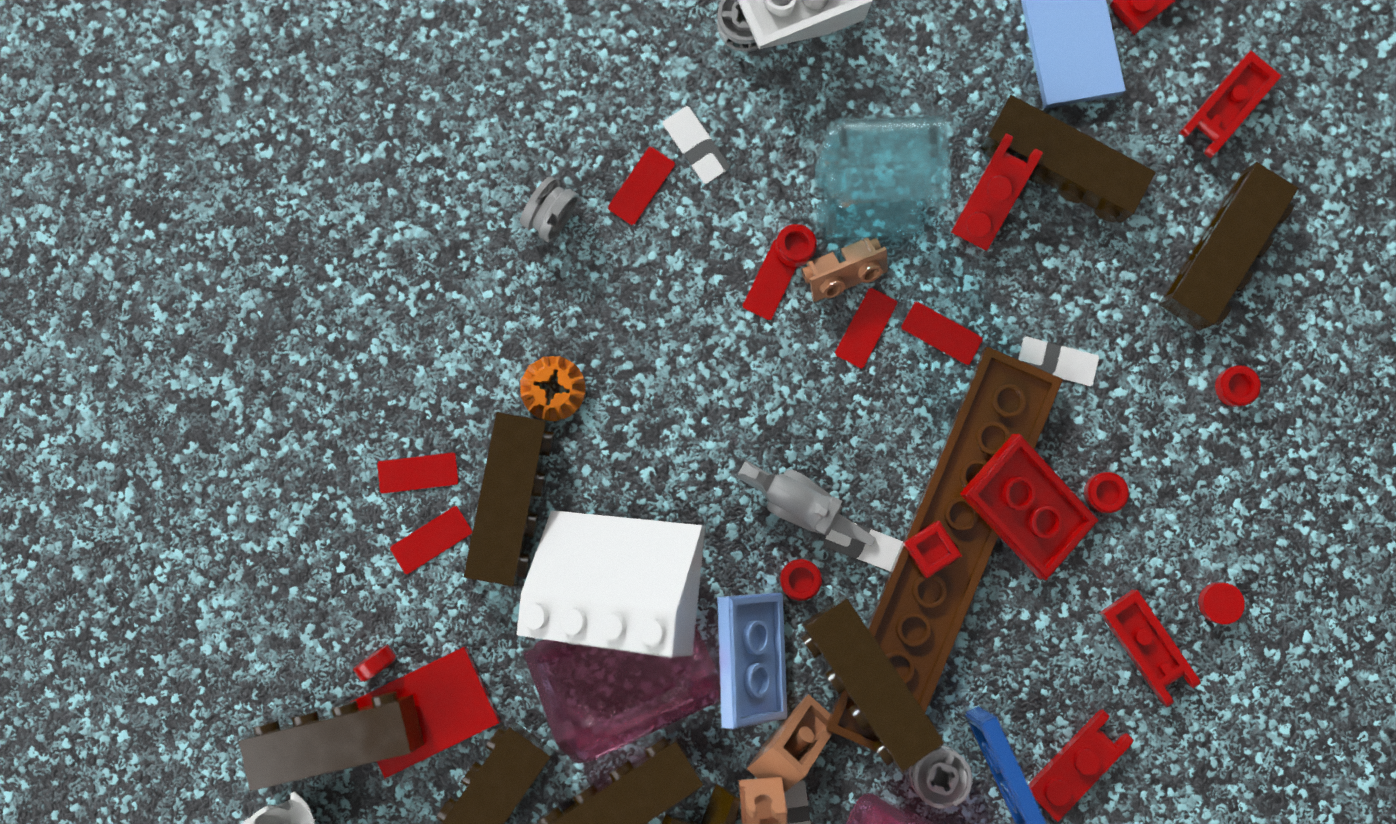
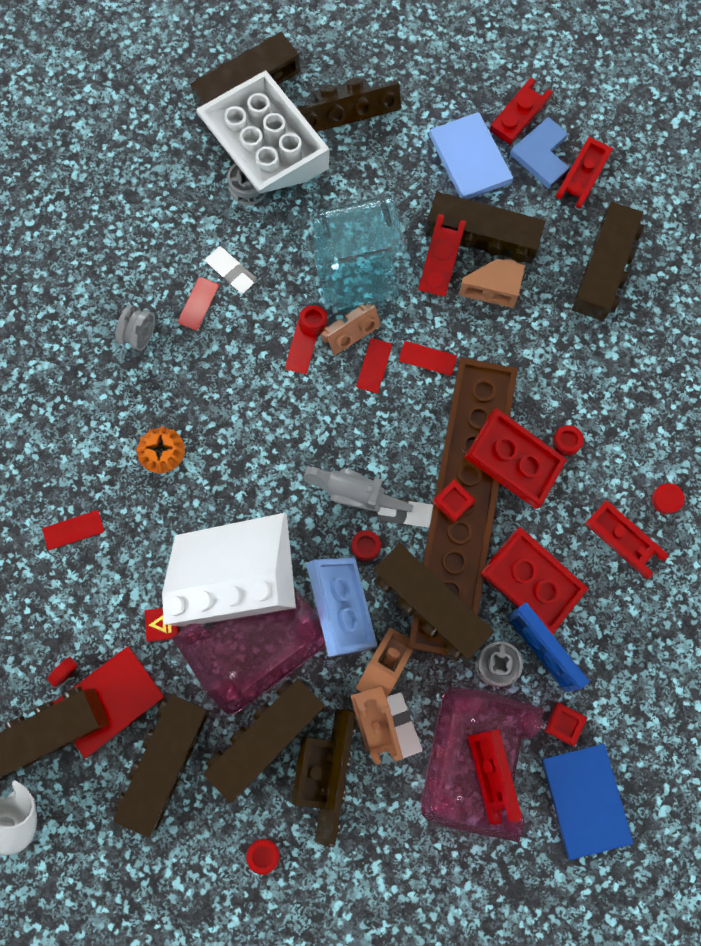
camera: 10 degrees left, 10 degrees down
(431, 540) = (90, 576): red sticker -> none
(504, 628) = (155, 626): none -> red tile
(508, 500) = (141, 532): dark brown brick -> none
(1013, 677) = (530, 574): none -> red tile
(1060, 360) = (523, 360): white sticker -> none
(1063, 246) = (494, 283): none -> nougat slope
(1077, 767) = (597, 636): red hinge -> none
(1167, 58) = (536, 153): none -> medium blue tile
(1238, 386) = (639, 351): red tile -> none

